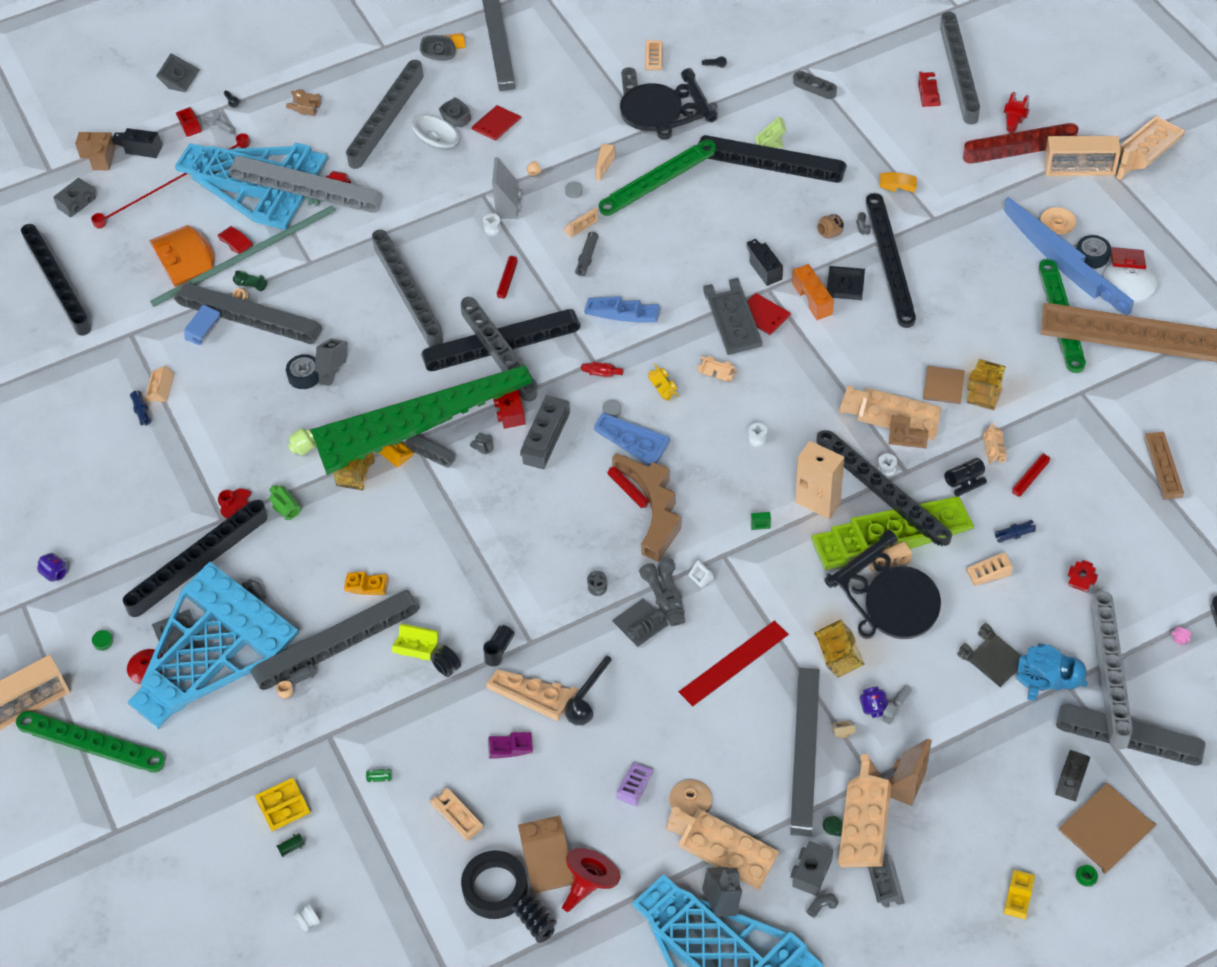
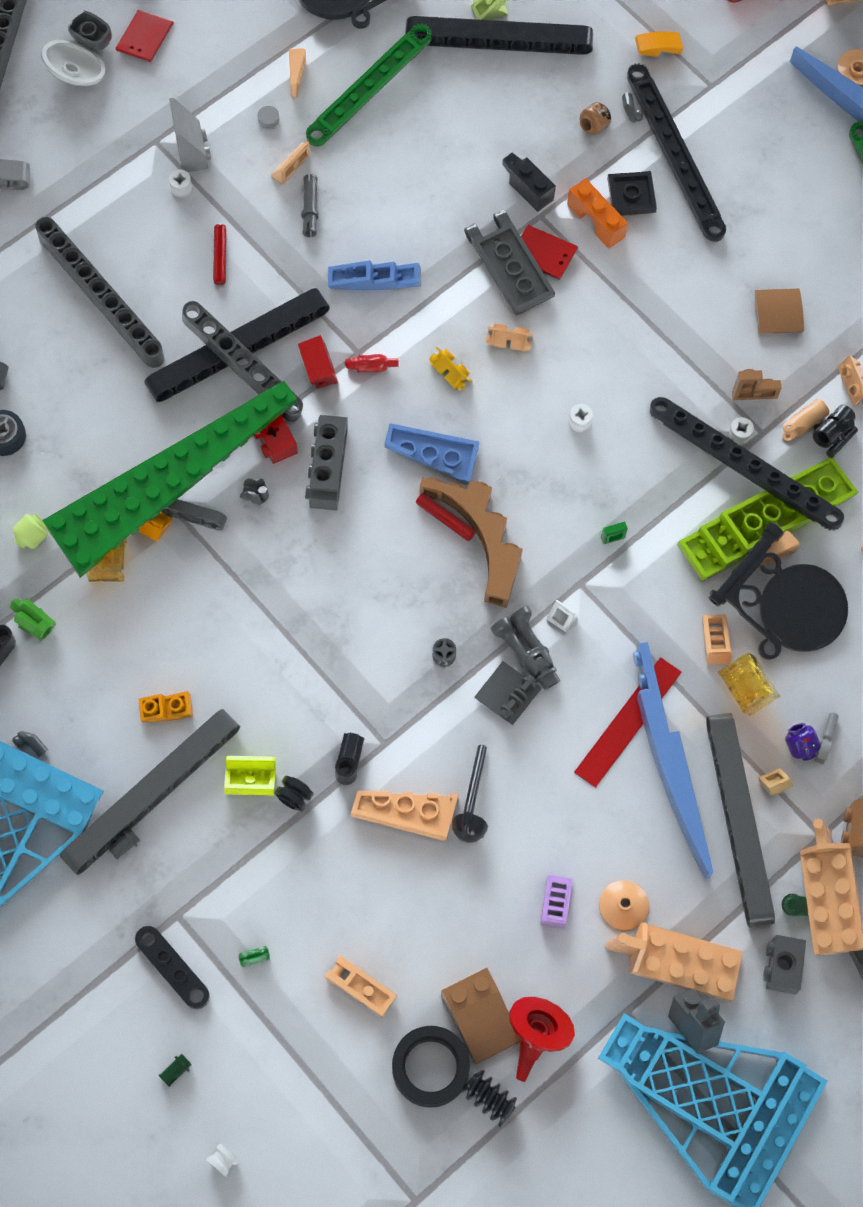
camera: 20 degrees left, 15 degrees up
(282, 804) = (149, 1019): yellow slope -> none
(284, 689) = (105, 869): light nougat hinge -> none
(312, 771) = (172, 967): none -> black plate
(329, 358) = (33, 412): dark grey hinge -> none
(510, 746) = (398, 884): magenta slope -> none
(533, 169) = (211, 95): light nougat hinge -> none
(559, 361) = (318, 362): none -> red hinge
(612, 408) = (397, 414): light grey tile -> none
(758, 694) = (670, 760): none -> medium blue slope
(819, 479) = (677, 473): light nougat brick -> none
(821, 901) = (805, 1001): dark grey arm -> none
(822, 614) = (716, 653): none -> light nougat slope
(878, 407) = (724, 357): light nougat hinge -> none
(940, 466) = (805, 419): none -> light nougat piece
(985, 384) = (831, 305): clear yellow piece -> none

